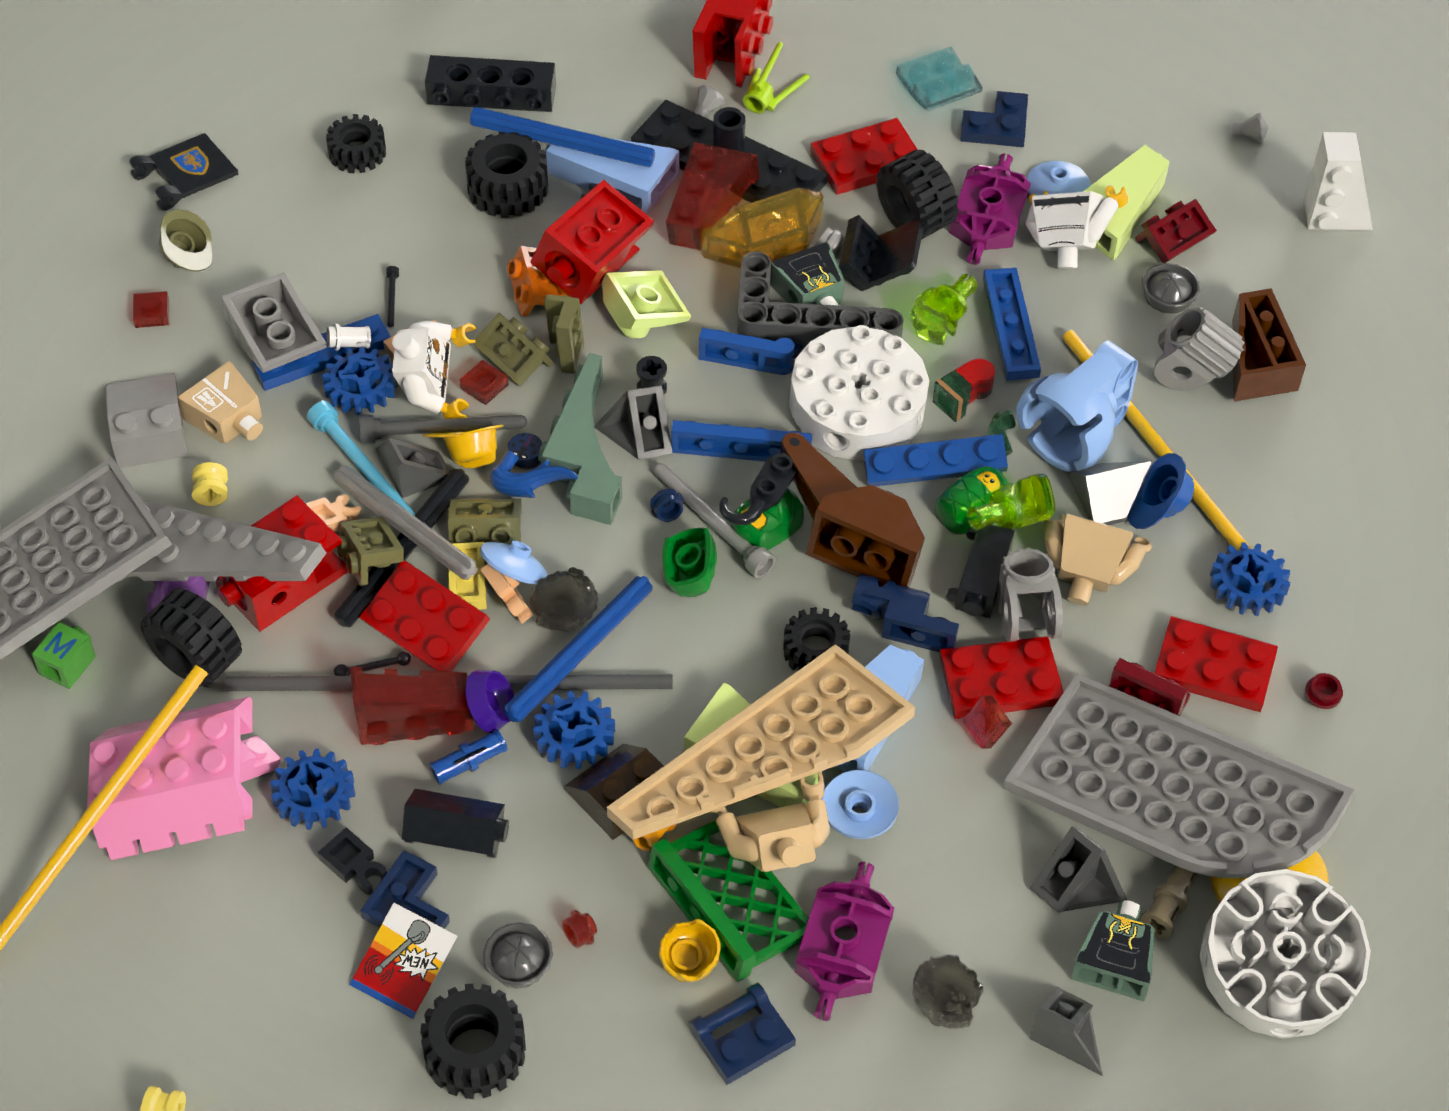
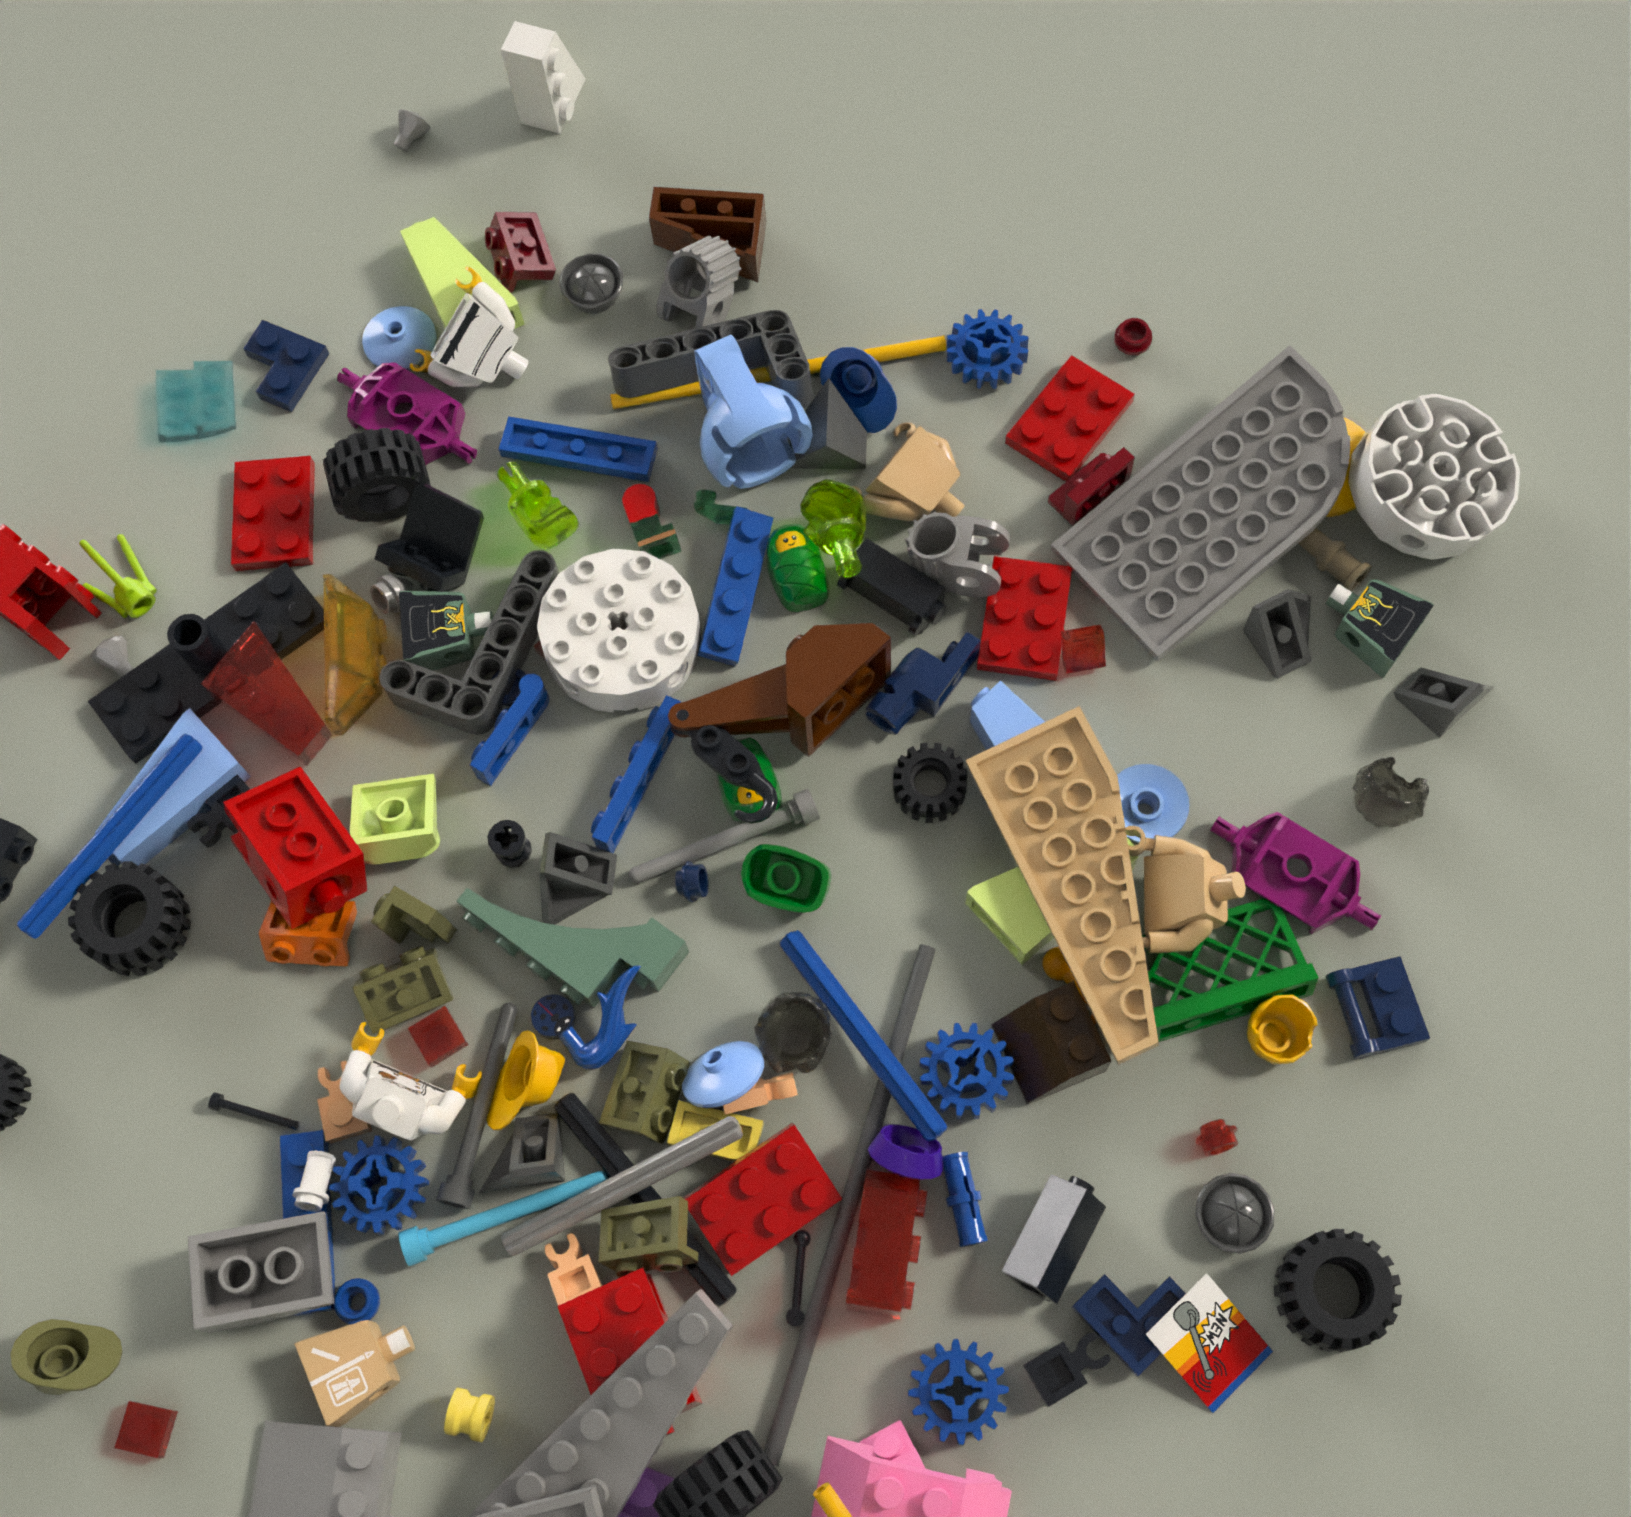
camera: 65 degrees left, 15 degrees up
(273, 396) = (344, 1298): none -> blue plate
(1165, 409) = (670, 359): none -> dark grey beam

